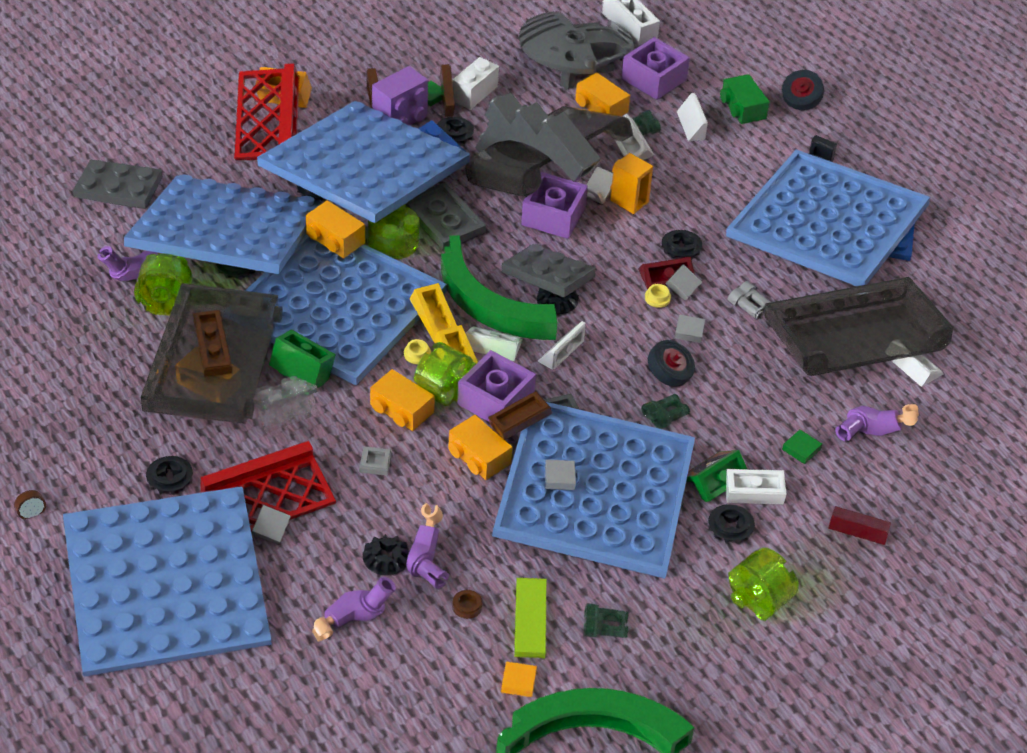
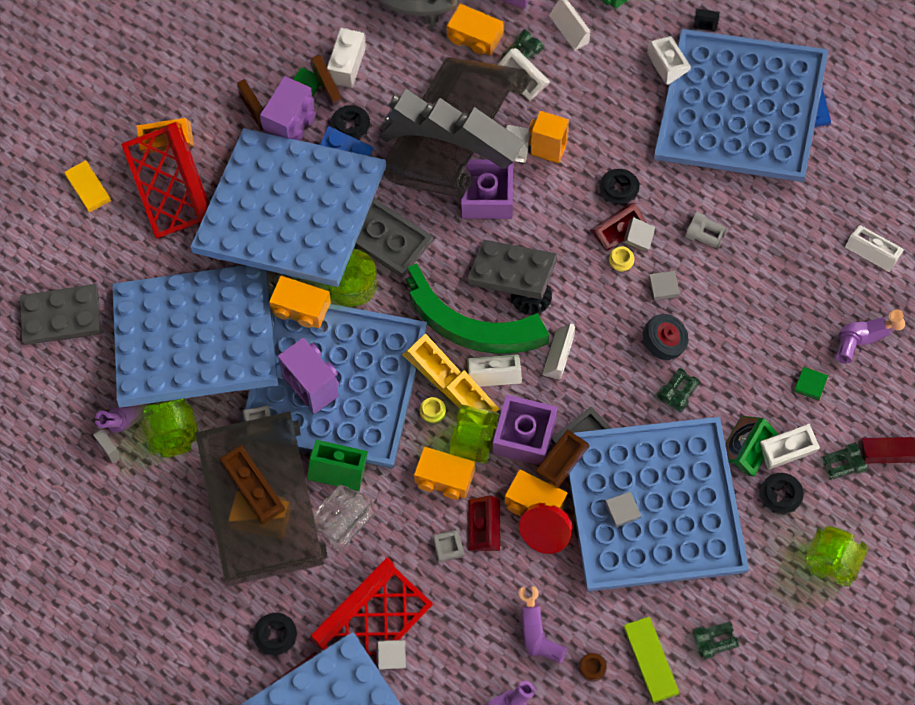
camera: 15 degrees left, 20 degrees up
(99, 283) = (107, 446): none -> light grey tile
(196, 106) = (87, 186): none -> yellow tile
(311, 277) = (309, 375): none -> medium lavender brick
(383, 564) = (503, 656): black gear -> none
(420, 455) = (484, 524): none -> dark red slope
(476, 469) = (545, 528): none -> red tile
(771, 165) = (667, 59): none -> white slope
(818, 523) = (853, 457): none -> clear green piece
(859, 326) = (816, 231): clear smoke windscreen -> none

